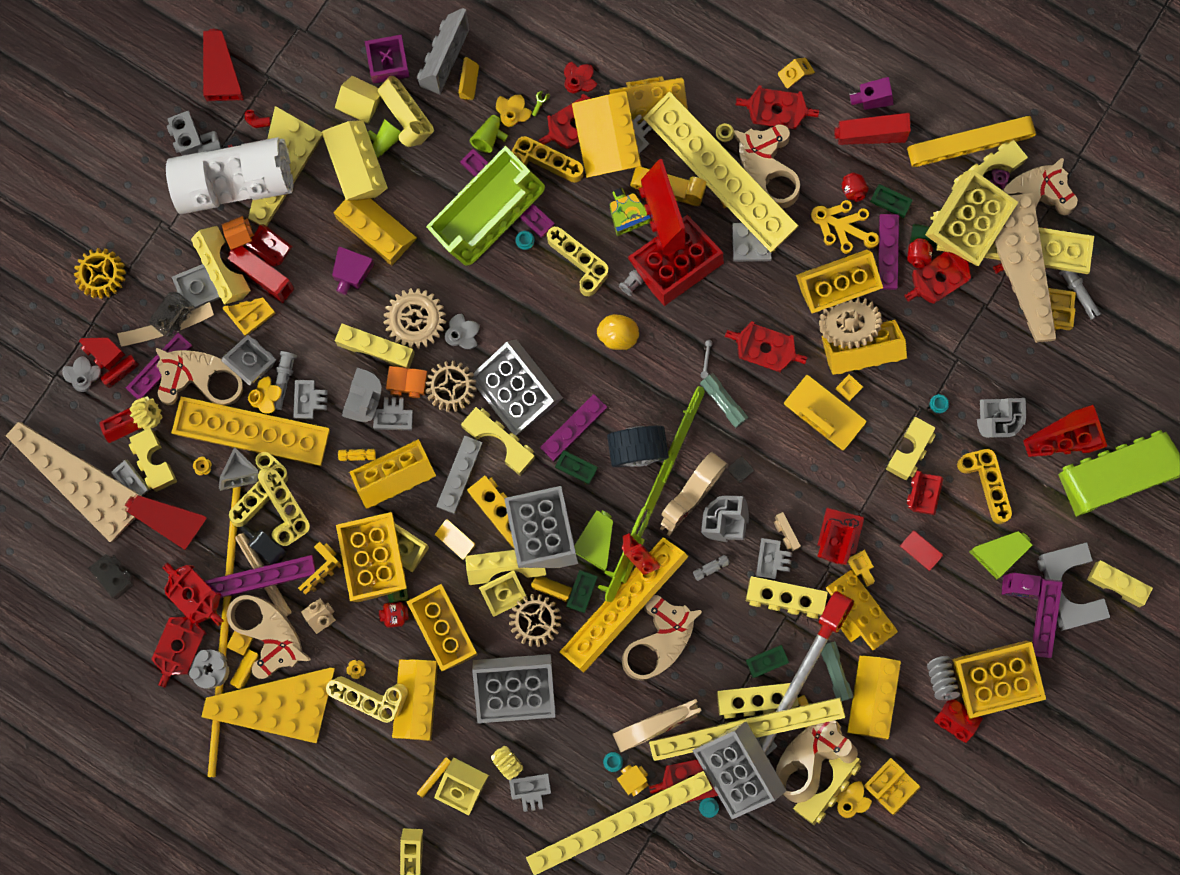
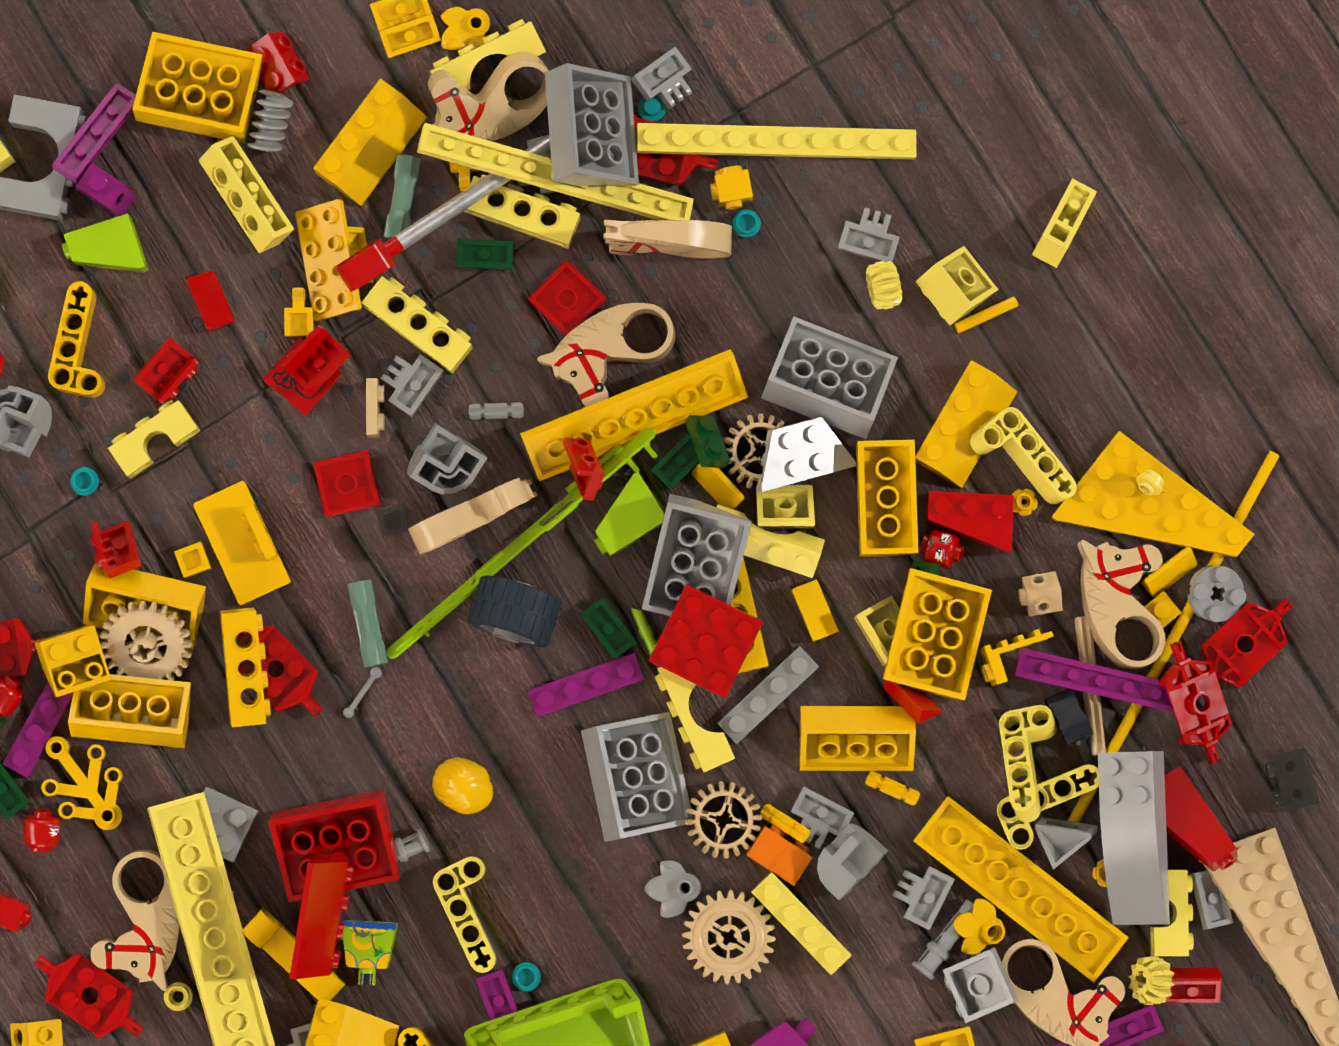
camera: 160 degrees left, 5 degrees up
(194, 493) = (1134, 836): none -> light grey slope
(281, 716) = (1150, 482): none -> light yellow plate
(365, 509) = (913, 701): none -> red slope
(383, 644) = (973, 515): none -> red wedge
(412, 401) = (785, 823): none -> yellow axle
(508, 629) = (801, 453): none -> wing
(512, 484) = (705, 640): none -> red plate
(551, 476) = (645, 630): none -> lime piece
(570, 609) = (707, 441): none -> dark green plate
(702, 659) = (567, 298): none -> red tile
(710, 829) = (664, 79): none -> light grey hinge
(771, 310) = (233, 623): none -> yellow brick
(779, 479) = (346, 484): none -> red tile
(888, 291) = (73, 660): none -> yellow slope
(899, 370) = (115, 548): none -> red bracket
(934, 625) = (246, 194): none -> light yellow brick

